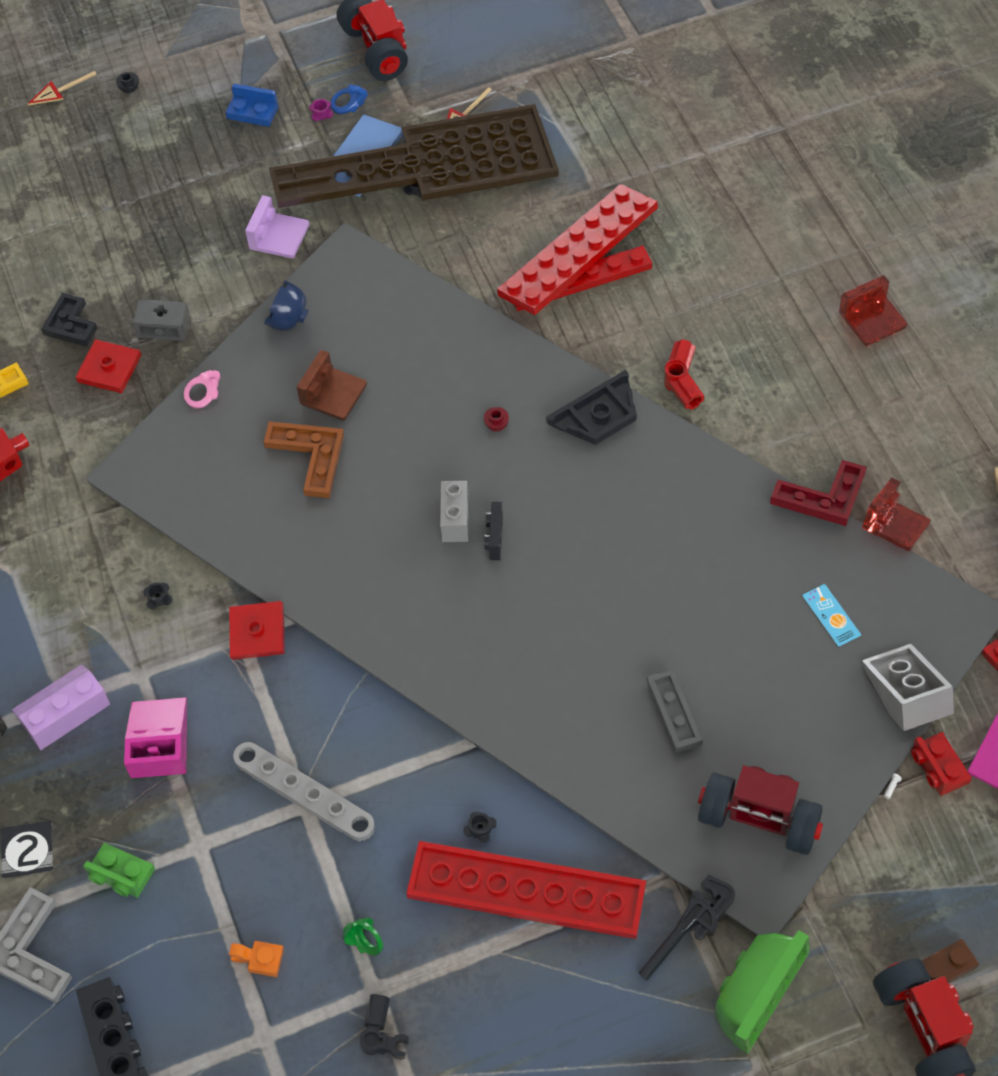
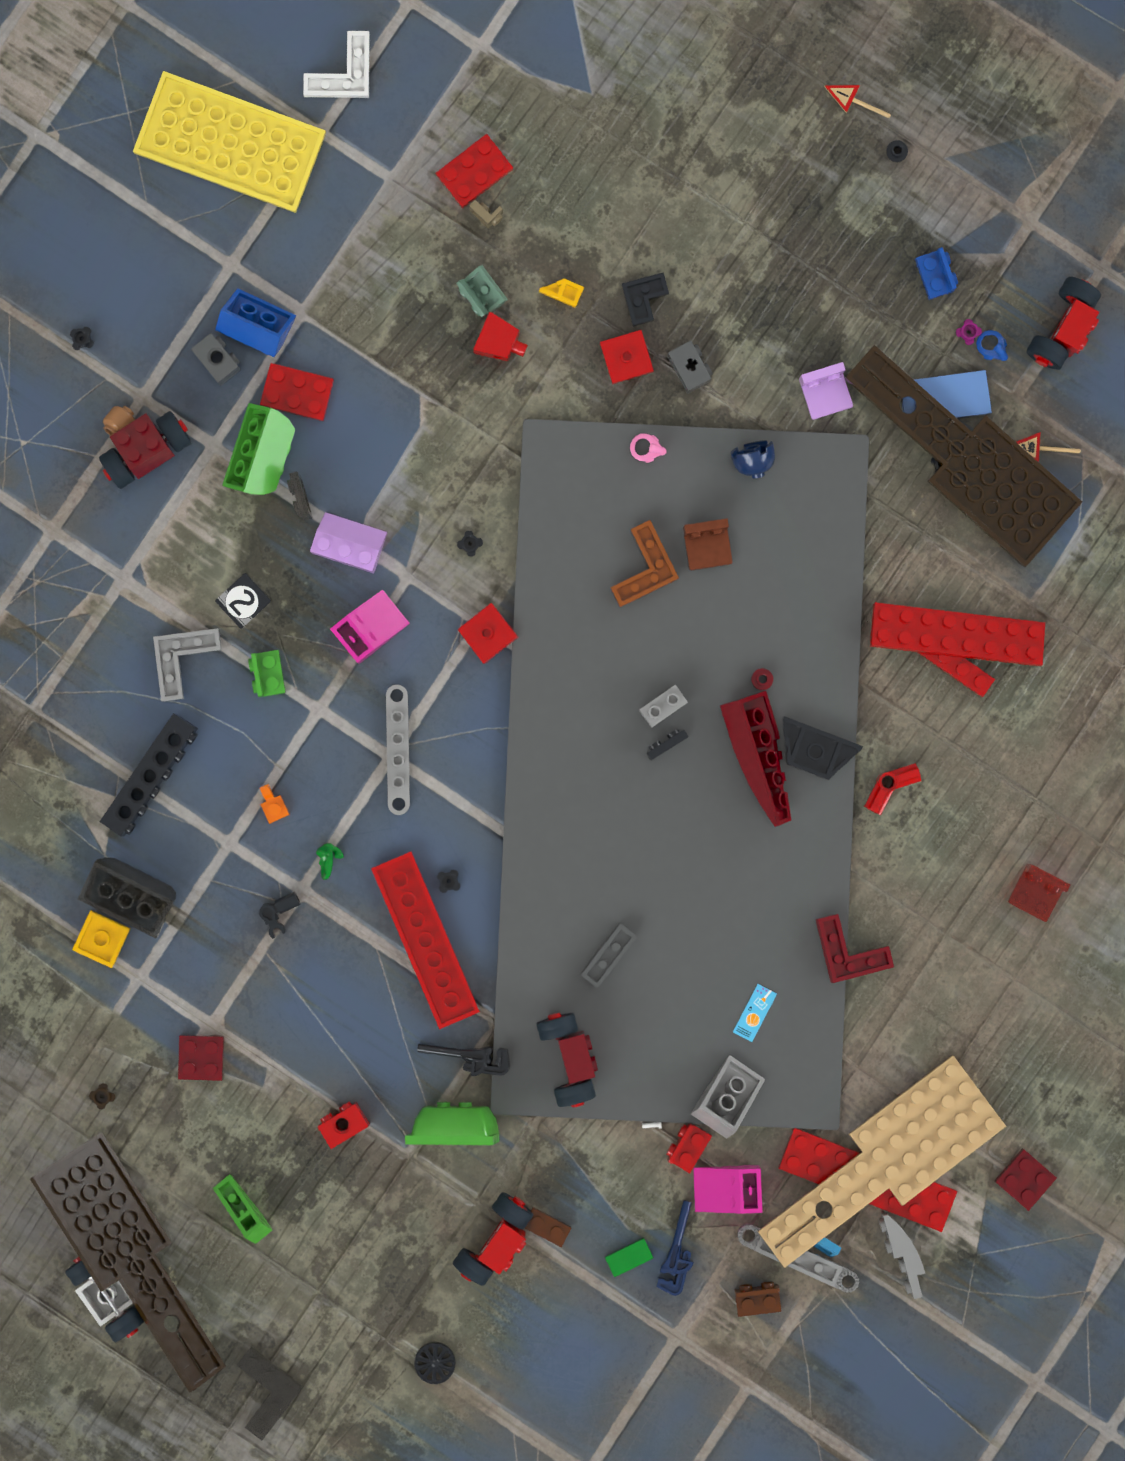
camera: 45 degrees right, 30 degrees up
(549, 455) = (754, 741): none -> dark red wedge
(893, 520) = (859, 1014): clear red bracket -> none

